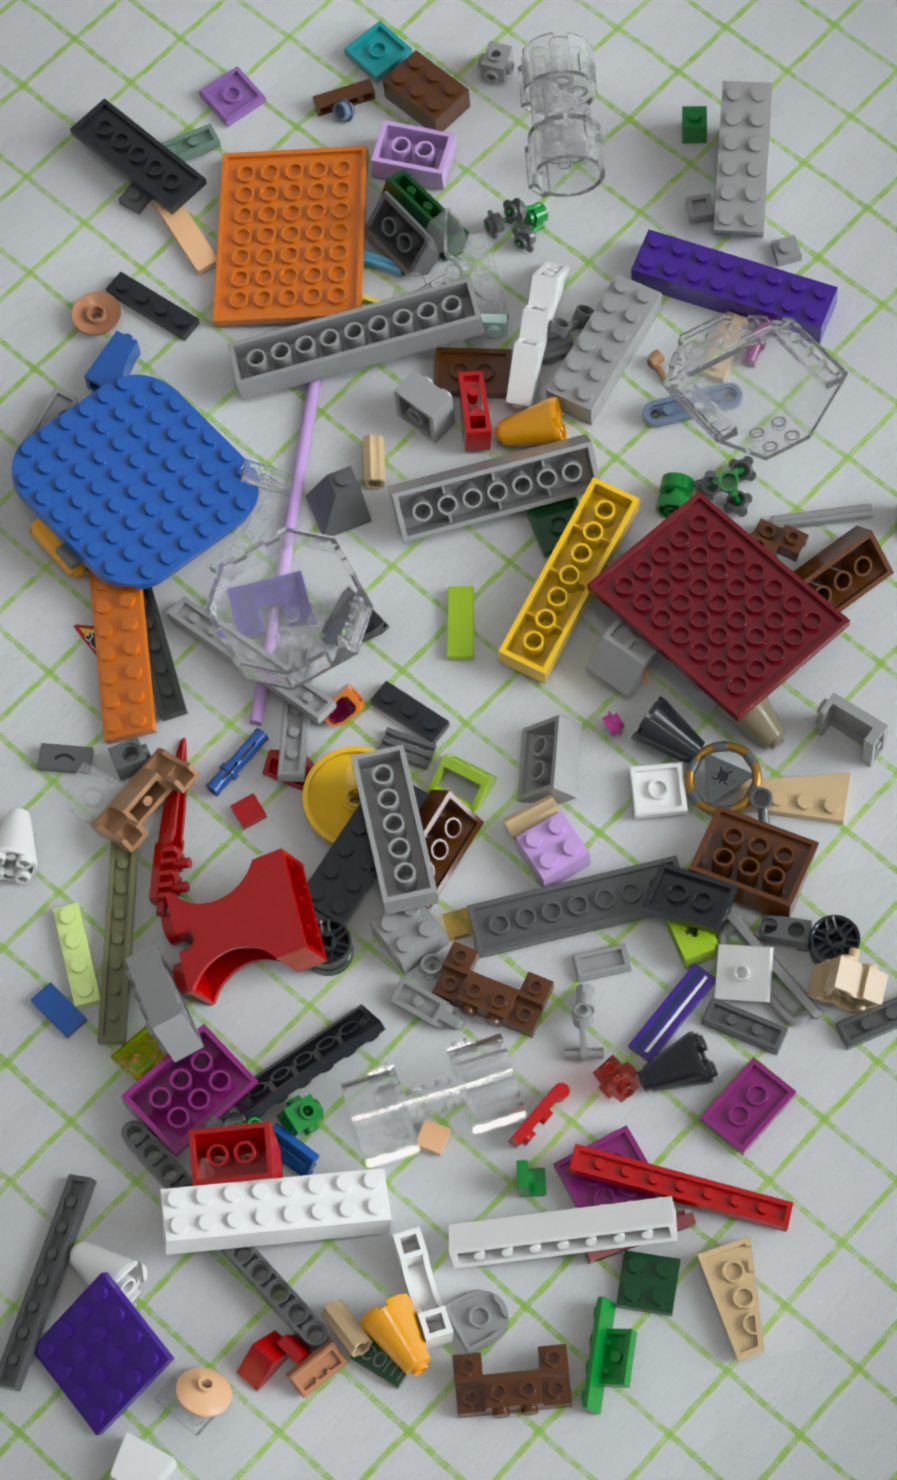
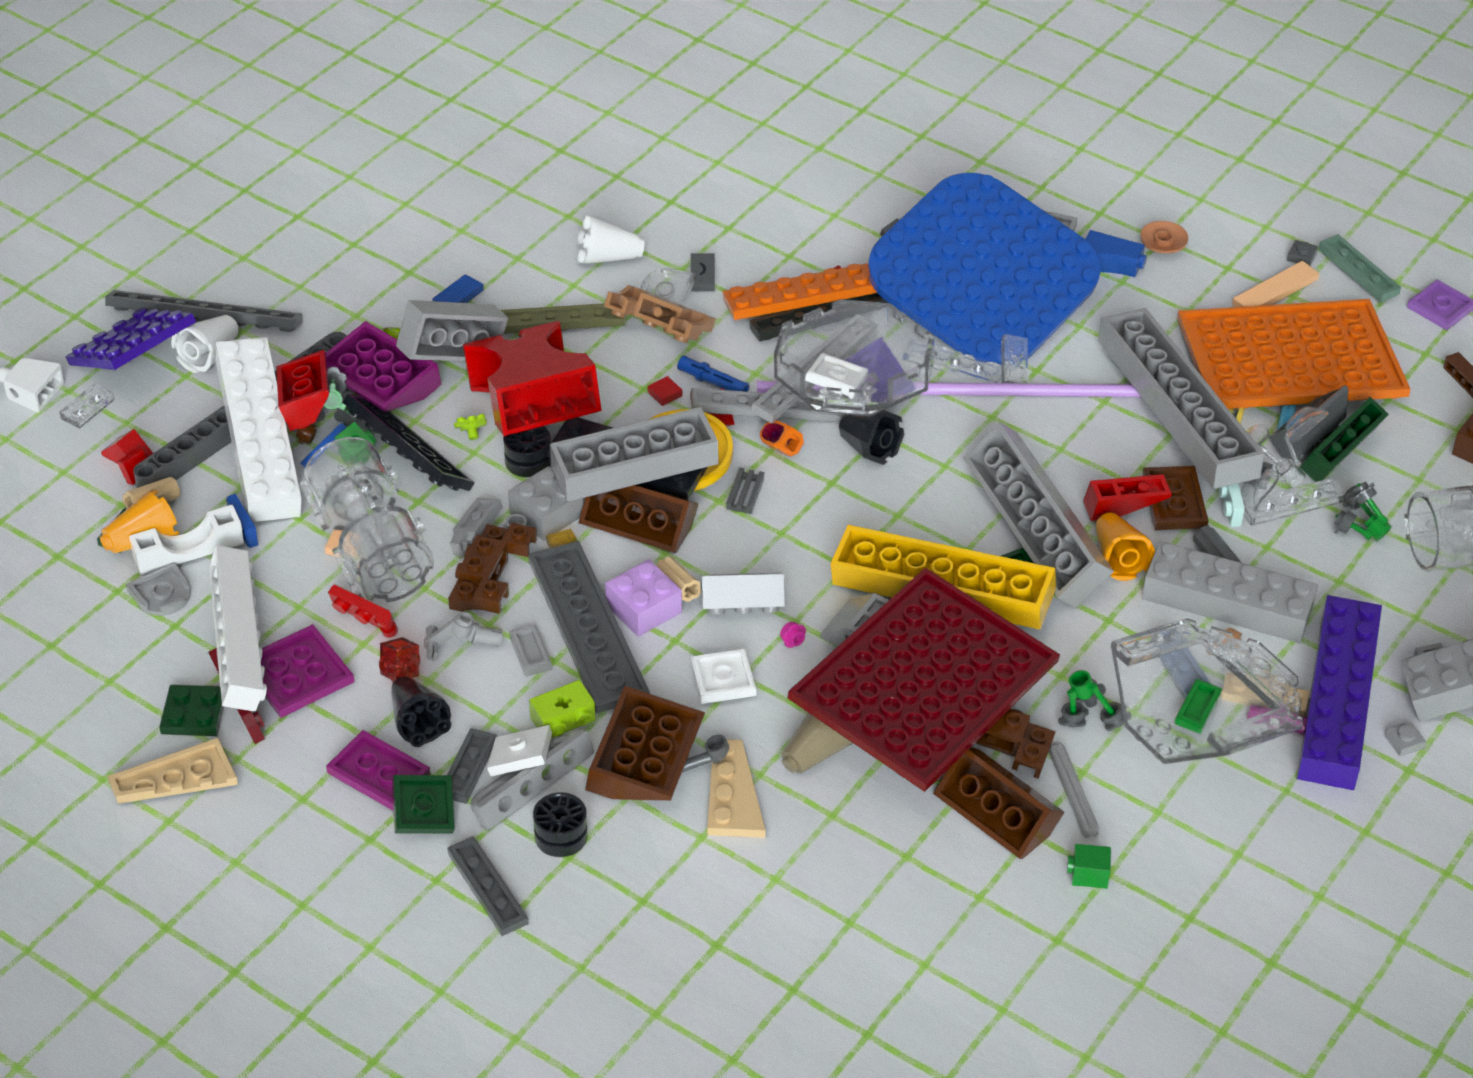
camera: 75 degrees right, 20 degrees down
(77, 955) = (522, 296): yellowish green plate -> none
(121, 751) = (706, 301): dark grey brick -> none
(138, 156) = (1340, 239): black plate -> none
(153, 306) = (1186, 276): black plate -> none
(168, 850) = (624, 341): red piece -> none
(202, 1400) = (96, 422): light nougat dish -> none
(277, 1002) = (471, 425): none -> lime plant
(292, 633) = (836, 373): none -> white plate
(317, 1368) = (114, 481): nougat plate -> none
(338, 503) = (1012, 411): dark grey slope -> none
(343, 111) = (1452, 379): sand blue plate -> none
(373, 461) = (1053, 435): tan axle -> none
(383, 1238) = (247, 525): none -> blue tile
(410, 712) = (784, 490): black plate -> none
(417, 150) = (1414, 427): lavender brick -> none
(425, 406) = (1120, 452): light grey brick -> none
(460, 623) = (890, 516): lime tile -> none
(468, 771) = (720, 535): lime tile -> none
(512, 1391) = (84, 613): reddish brown bracket -> none
(529, 349) = (1269, 526): white arch -> none
(530, 1181) = (295, 606): green bracket -> none
(562, 327) = (1235, 541): dark grey bar -> none
(609, 1356) = (117, 678): green bracket -> none
(668, 732) = (784, 667): black cone -> none
(672, 1013) = (481, 707): dark purple tile -> none
(675, 491) = (1071, 658): green wheel -> none
(681, 1186) = (283, 717): red plate -> none
(690, 898) = (591, 690): black plate -> none
(722, 776) = (740, 717): piece -> none
(747, 398) = (1198, 706): none -> green tile
(786, 932) = (572, 778): dark grey leg -> none
(801, 1063) = (423, 804): none -> dark green plate
(847, 983) = (506, 822): tan brick -> none
(853, 723) = (804, 833): light grey panel -> none

